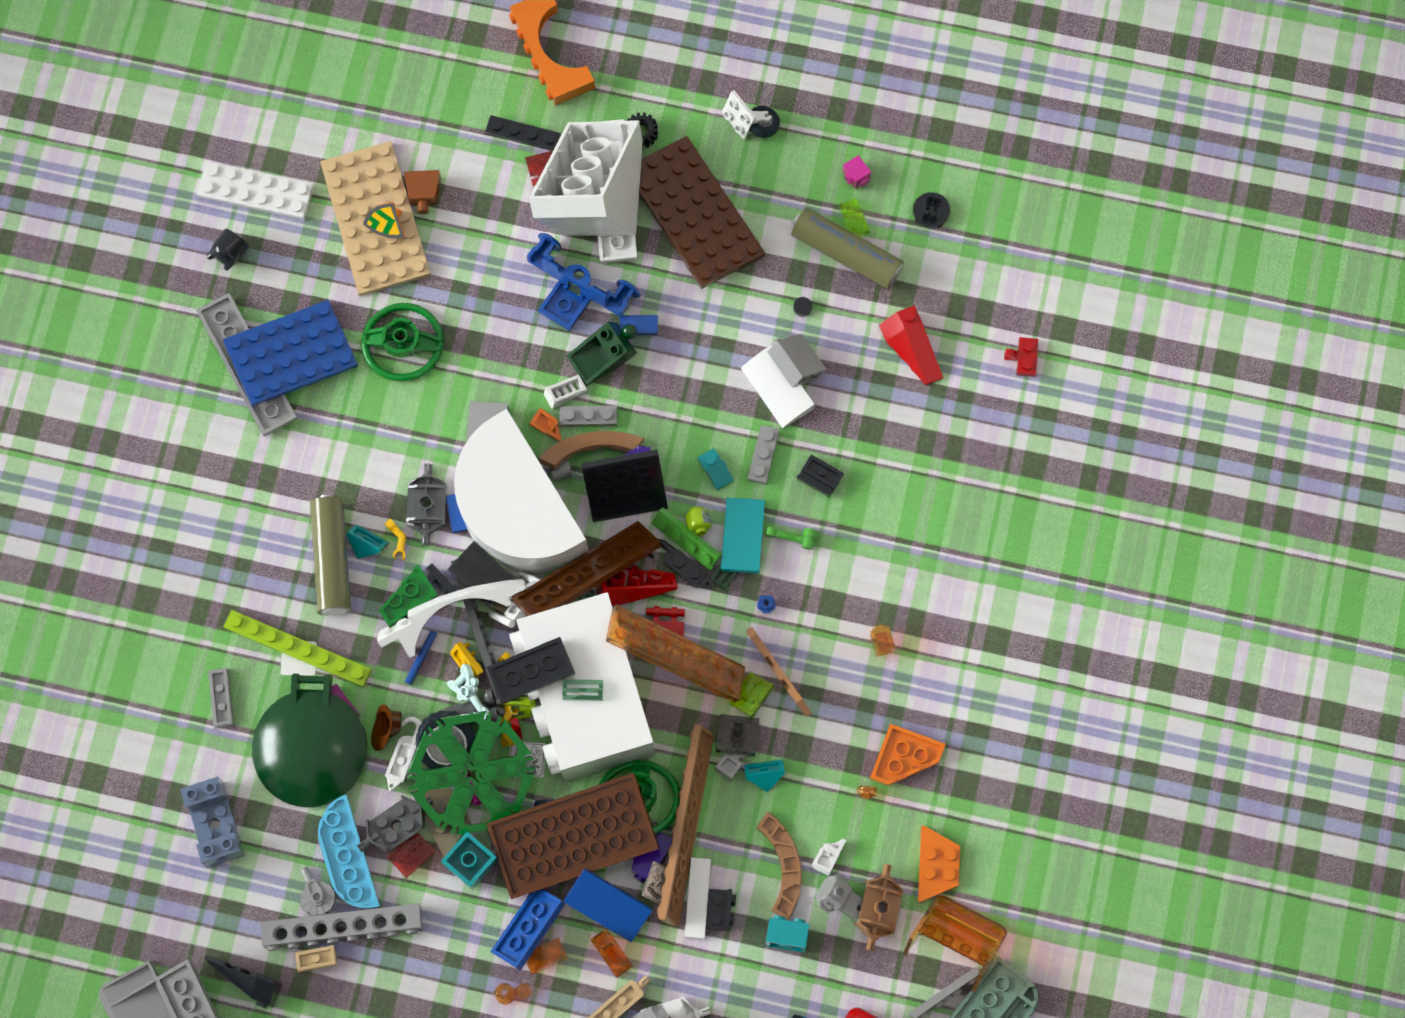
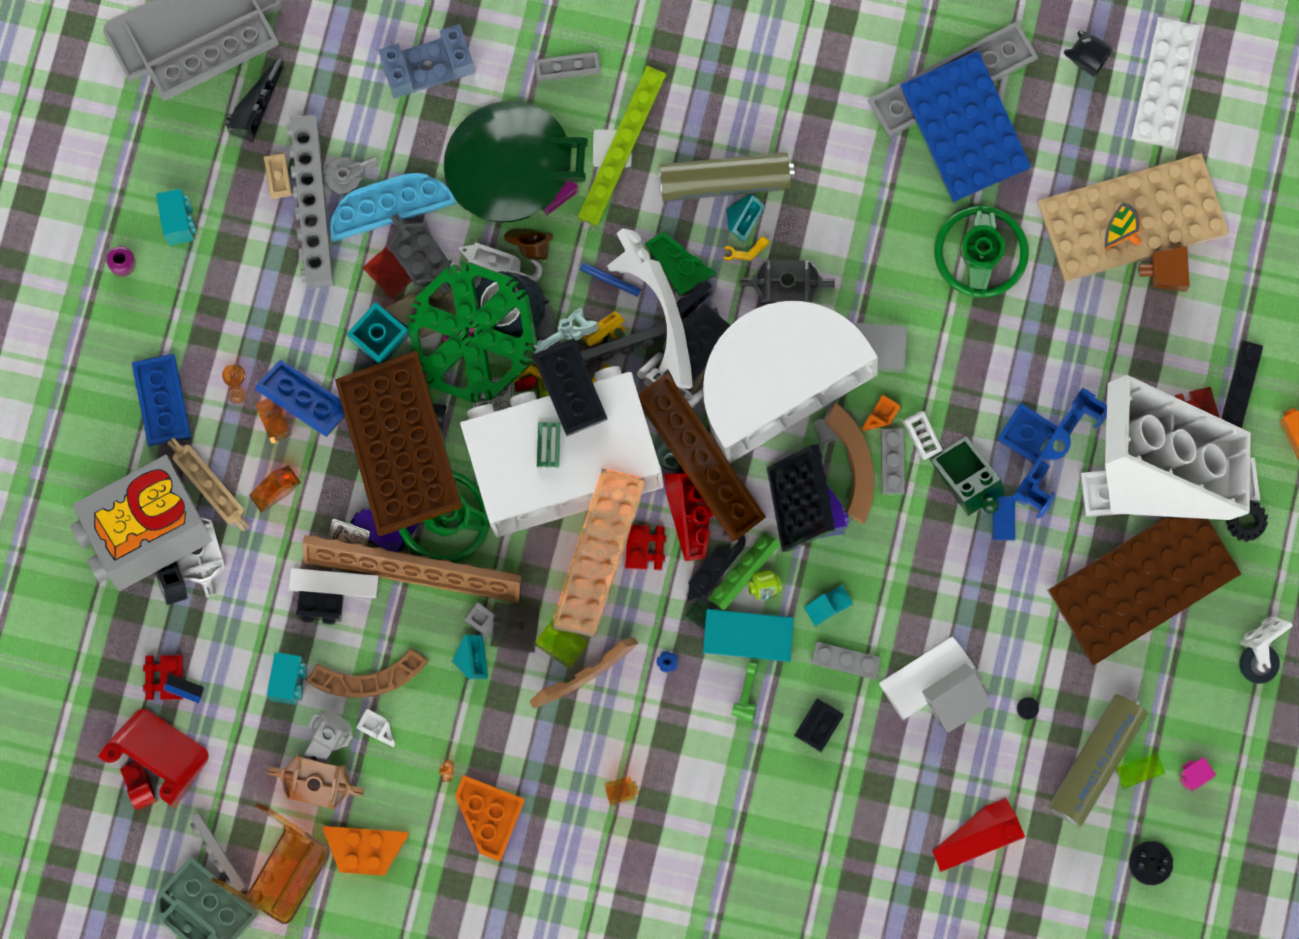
camera: 85 degrees right, 5 degrees up
(608, 905) = (323, 483): blue tile -> none

